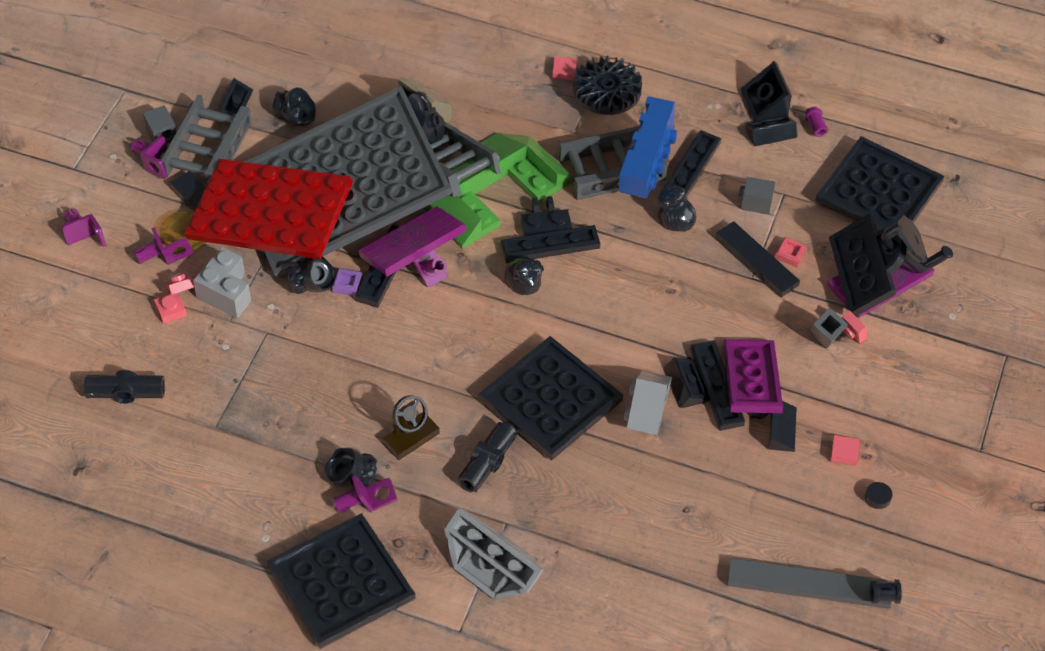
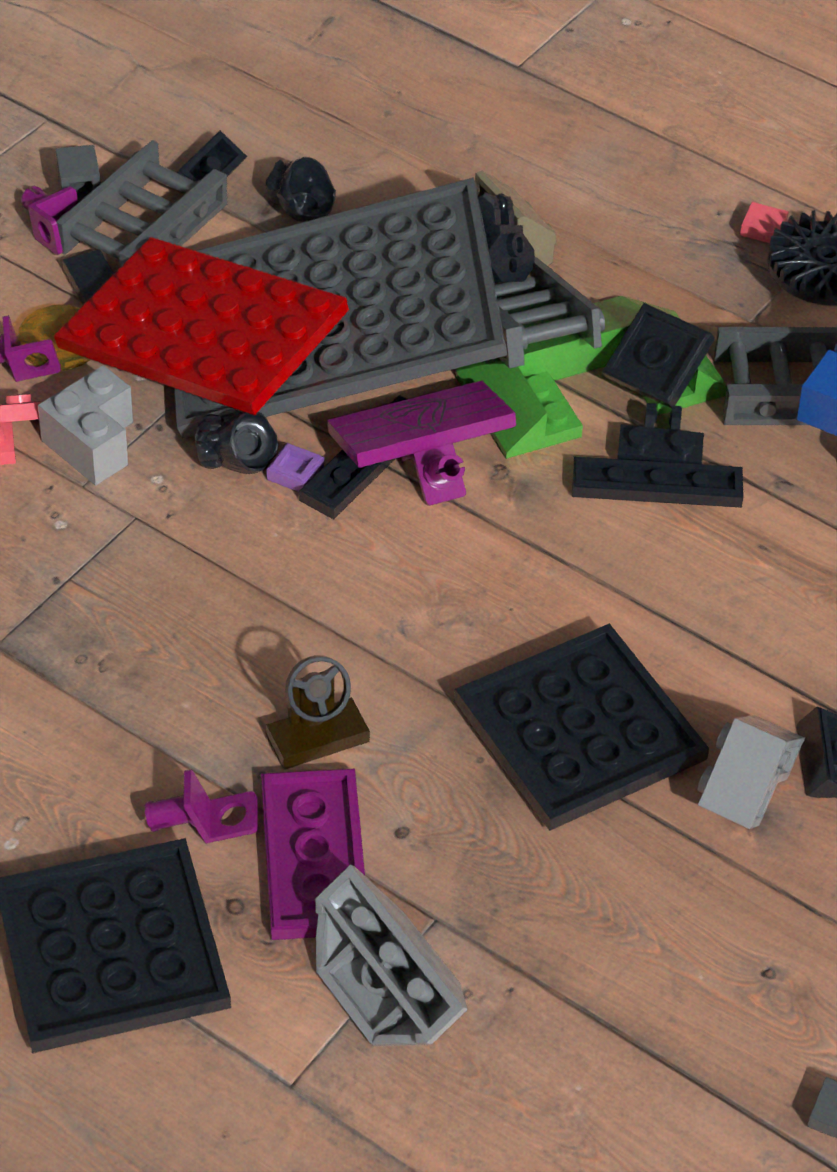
camera: 15 degrees right, 5 degrees down
(347, 463) = (193, 747): black hair -> none
(427, 499) = (308, 842): none -> magenta tile
(487, 457) = (436, 797): black piece -> none
(524, 275) = (596, 520): black hair -> none
(532, 169) = (658, 355): none -> black tile

